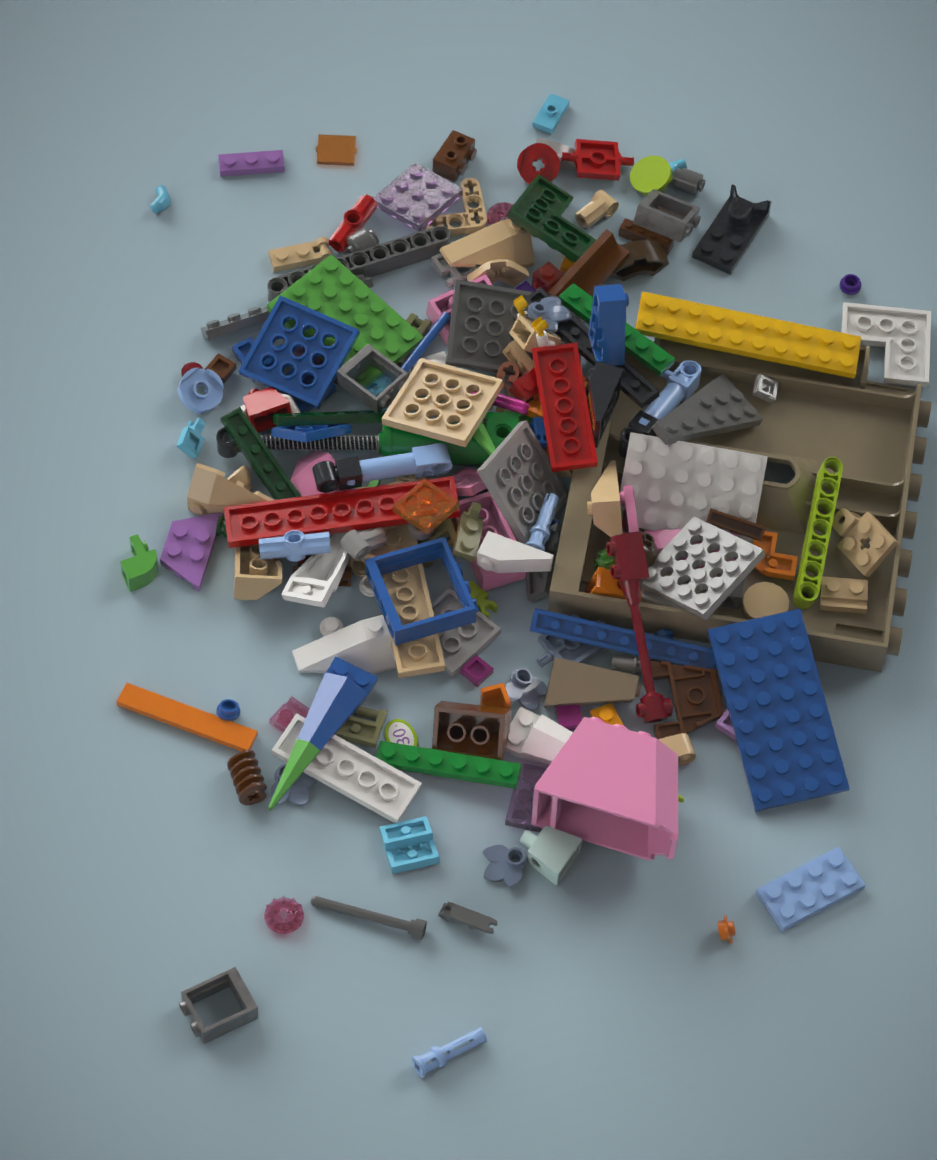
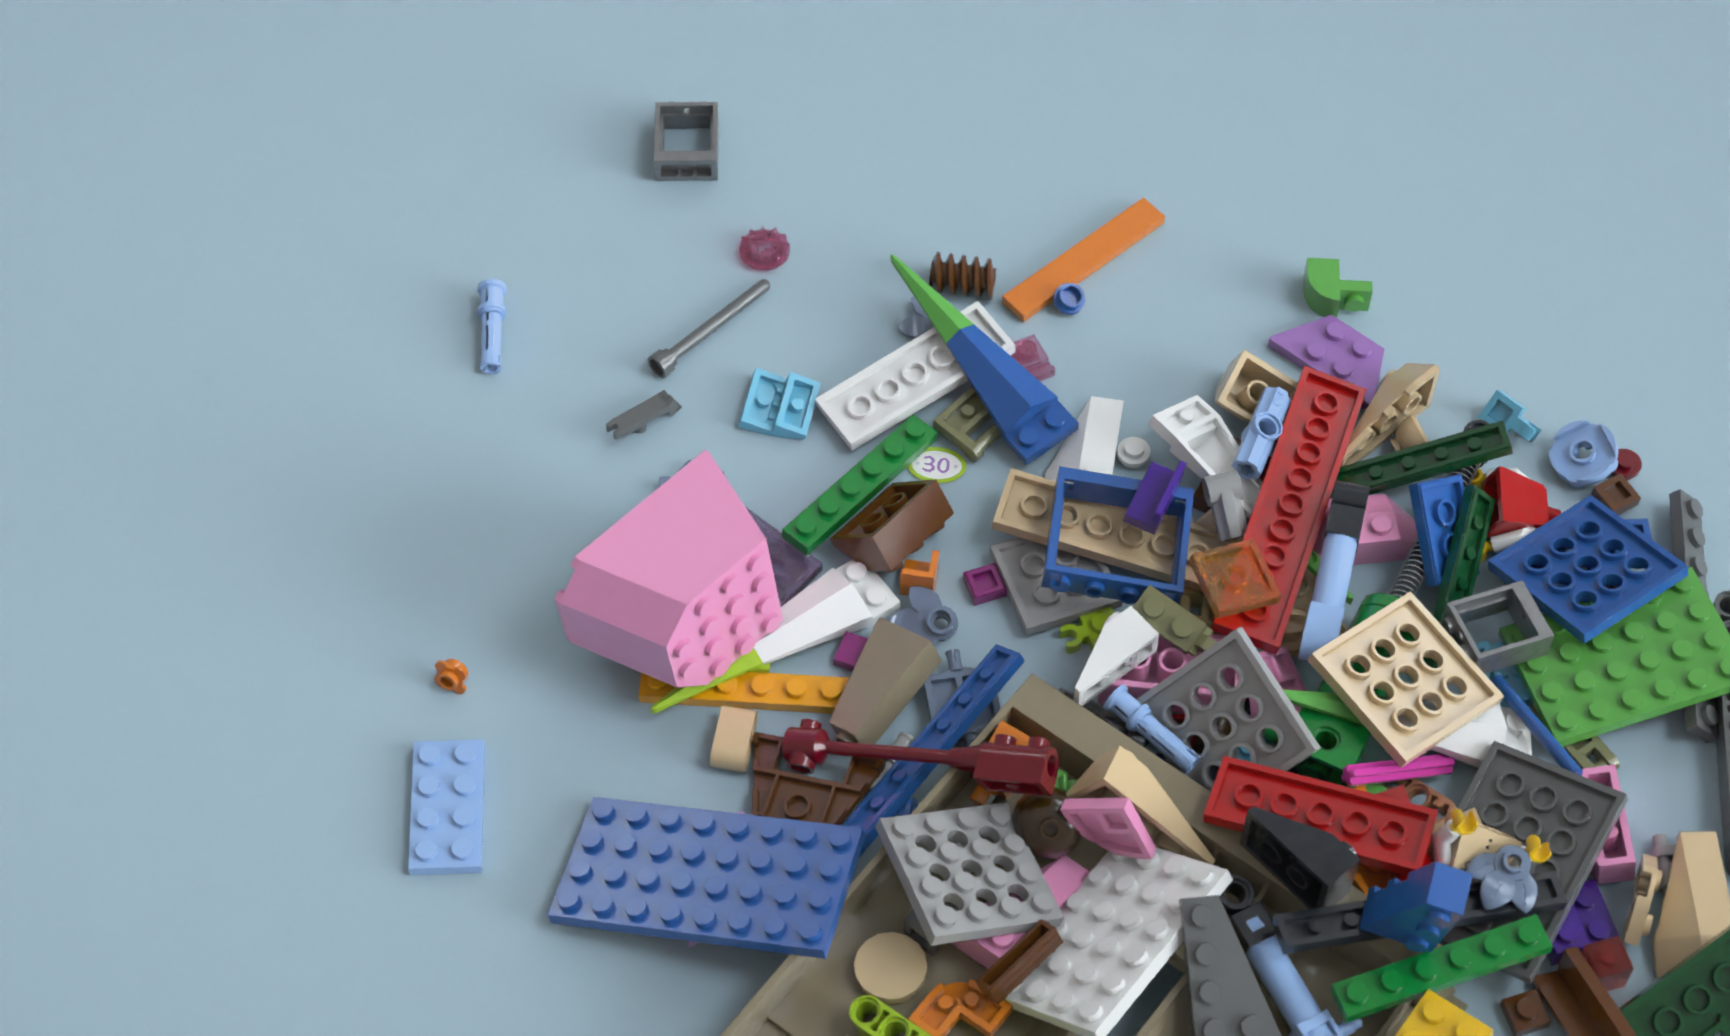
camera: 120 degrees right, 0 degrees up
(389, 568) = (1154, 496): none -> dark purple panel

